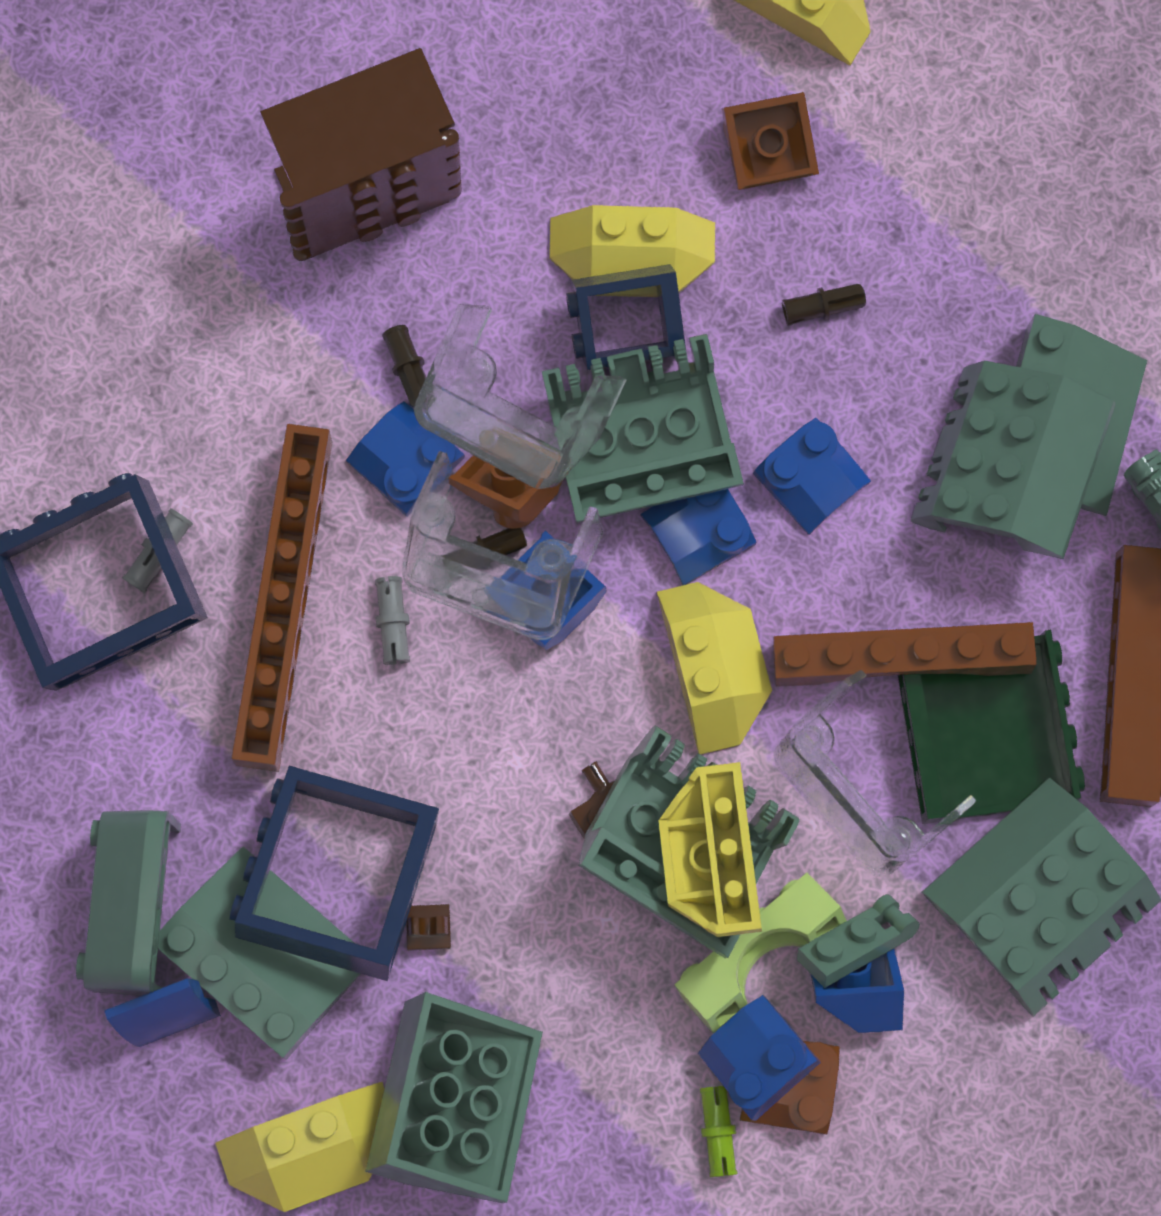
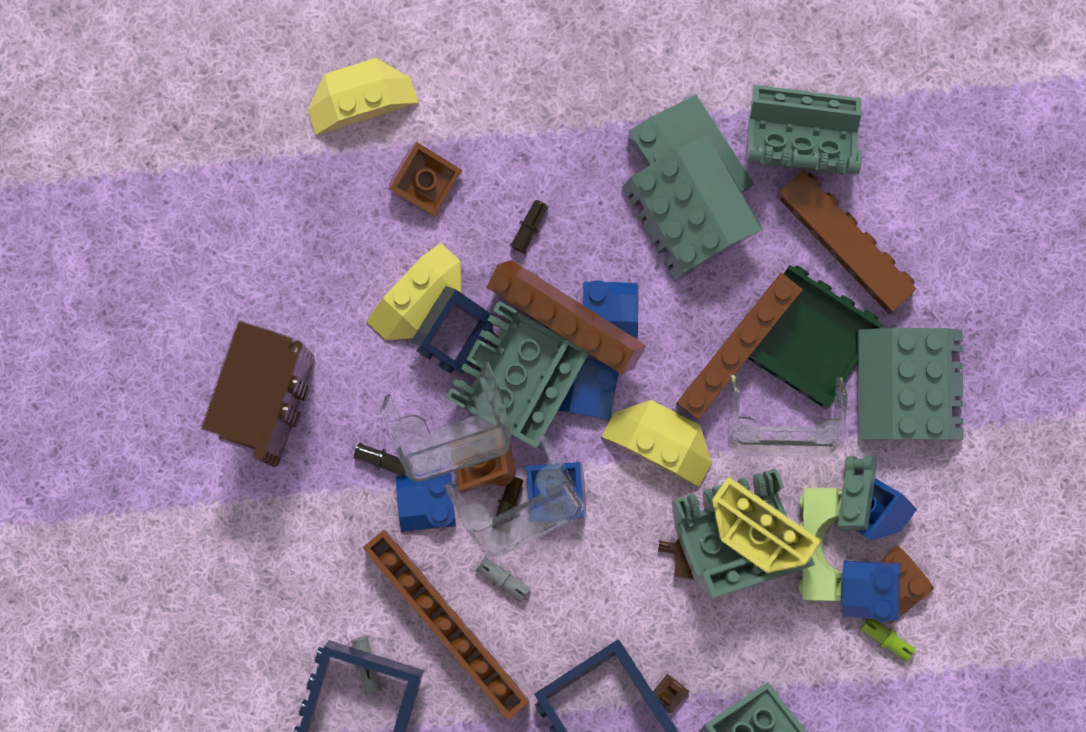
camera: 40 degrees left, 5 degrees up
(758, 426) = (566, 316): none -> dark orange brick

